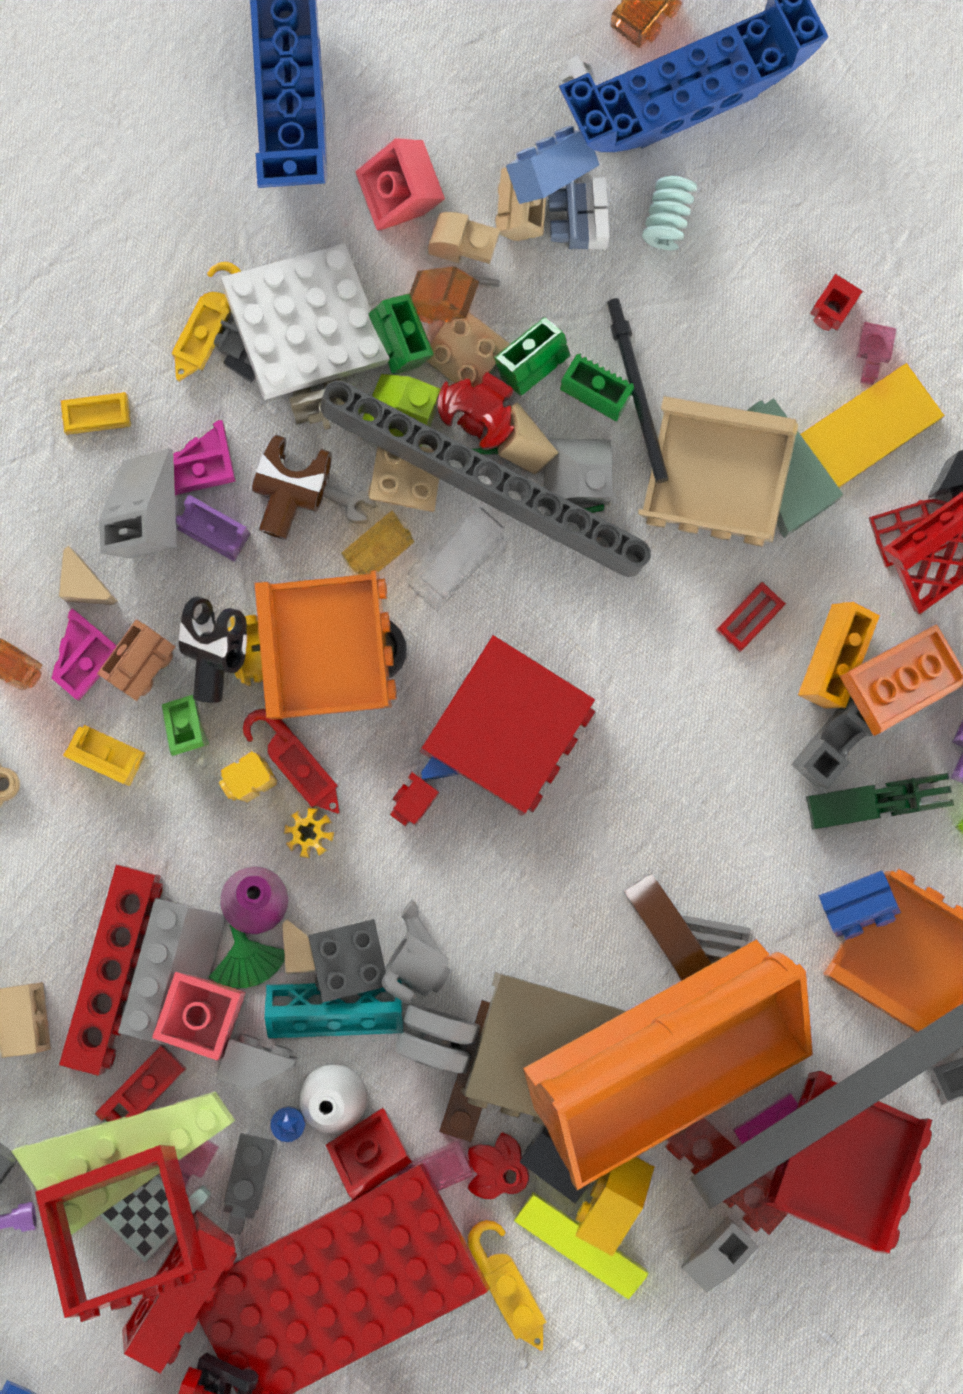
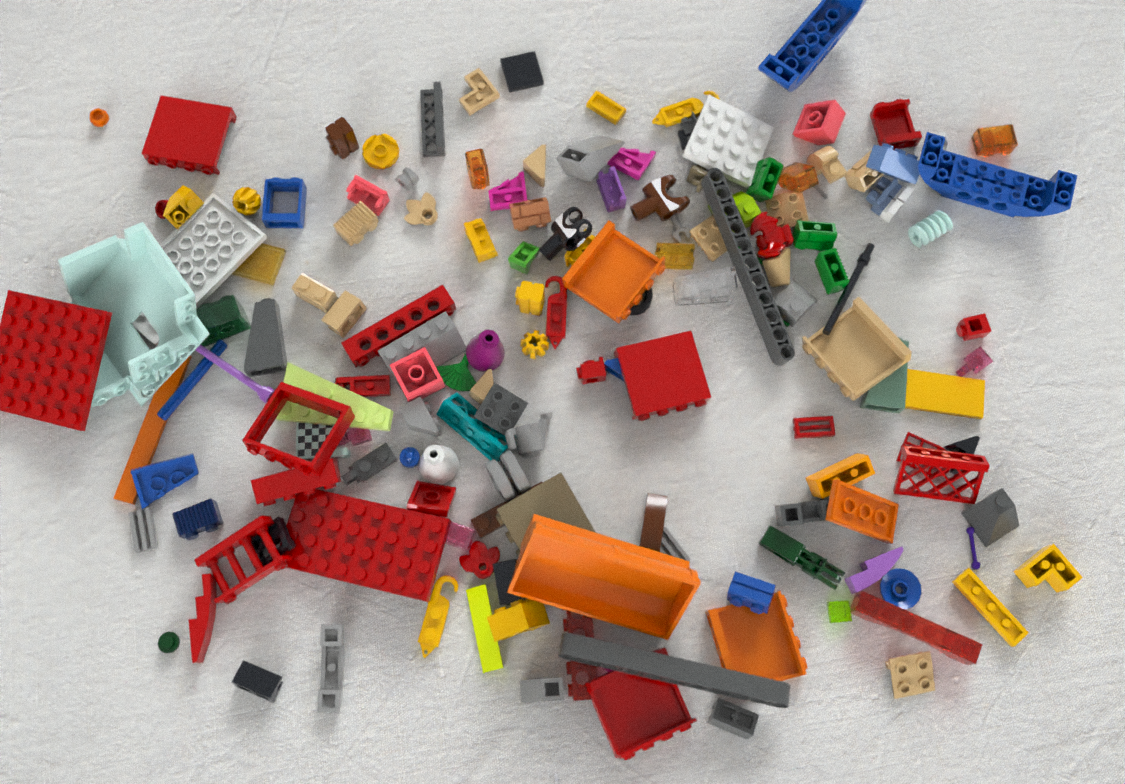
camera: 40 degrees right, 10 degrees down
(499, 100) = (894, 124): none -> red panel

